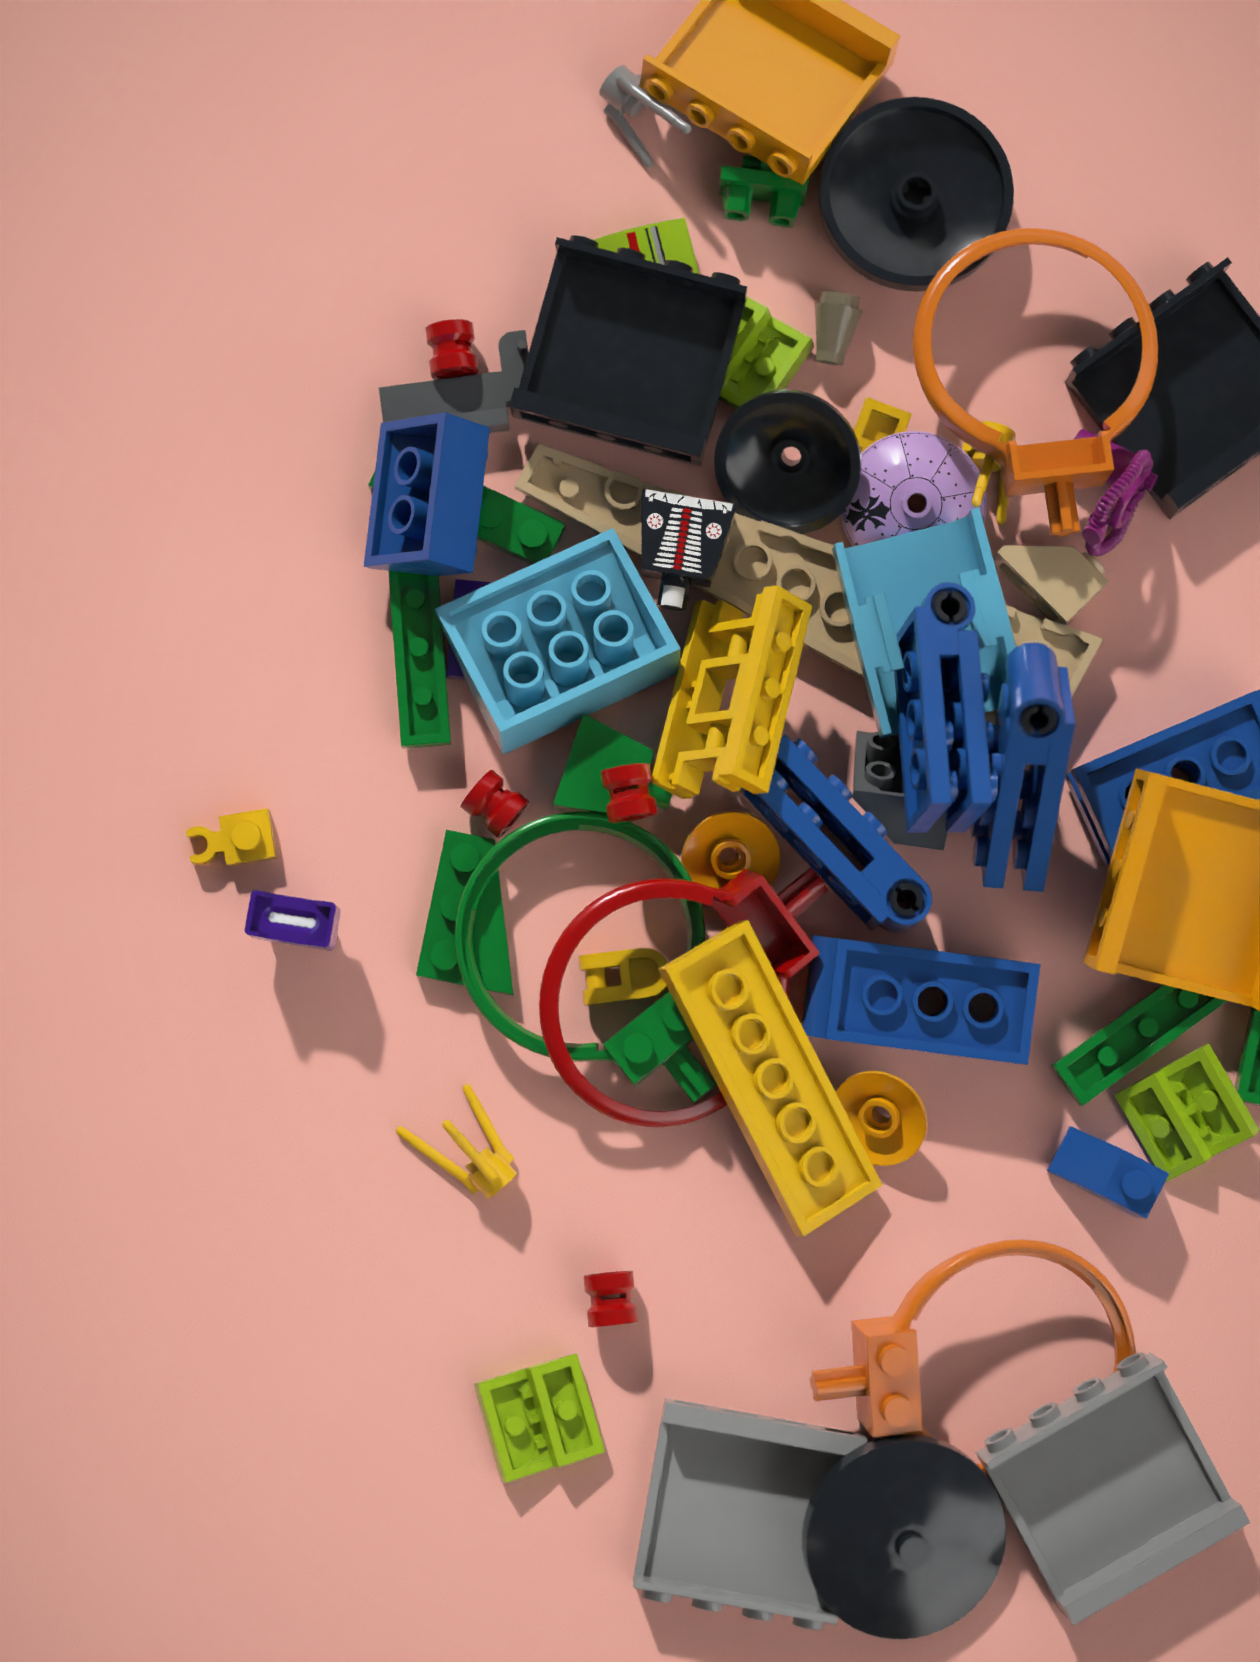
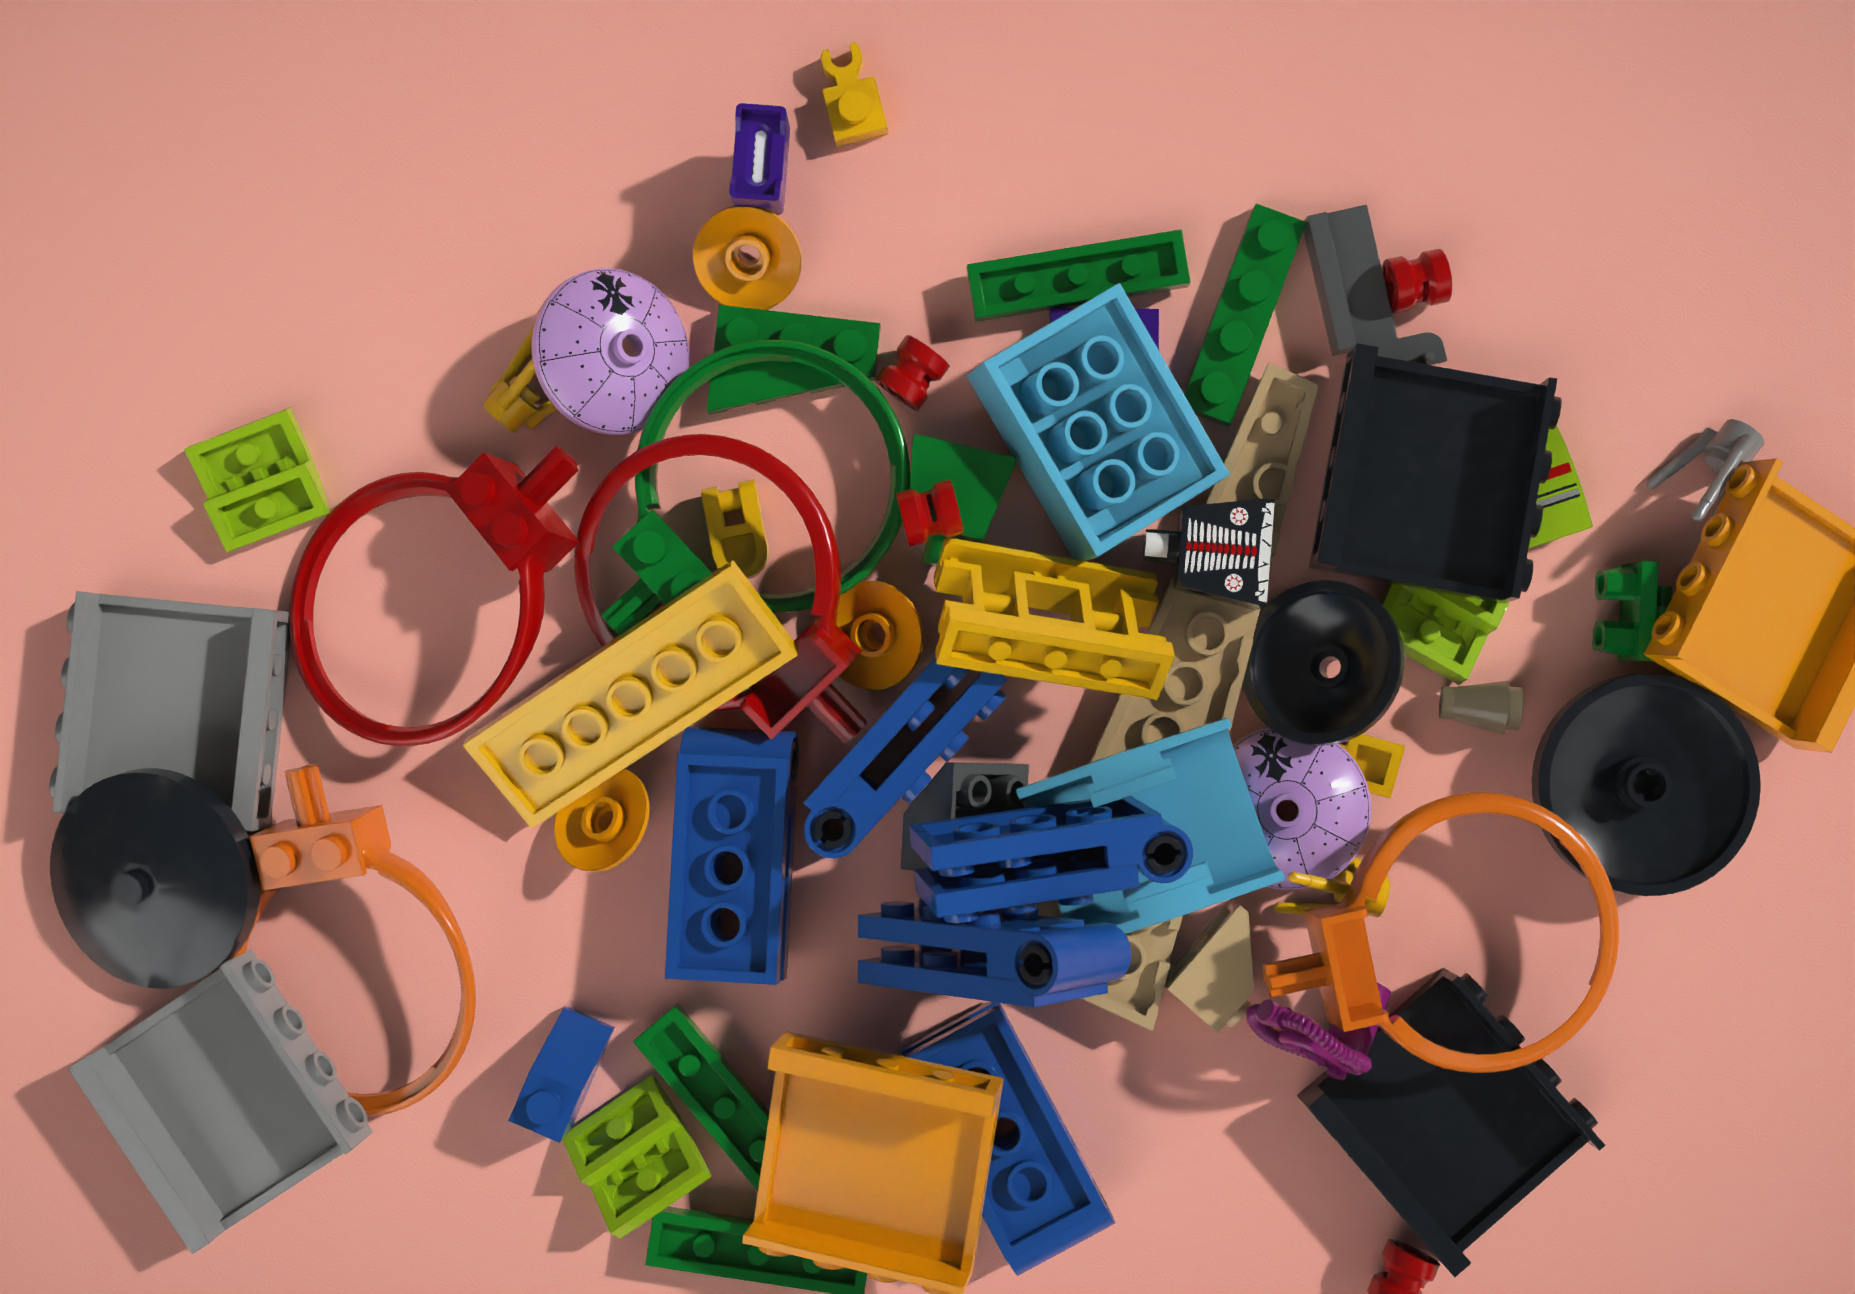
camera: 85 degrees right, 5 degrees up
(396, 945) = (742, 281): none -> light orange dish
(427, 495) = (1247, 265): blue slope -> none
(449, 1092) = (582, 354): none -> lavender dish
(598, 1175) = (510, 516): none -> red brick
(610, 1310) = (386, 543): red wheel -> none

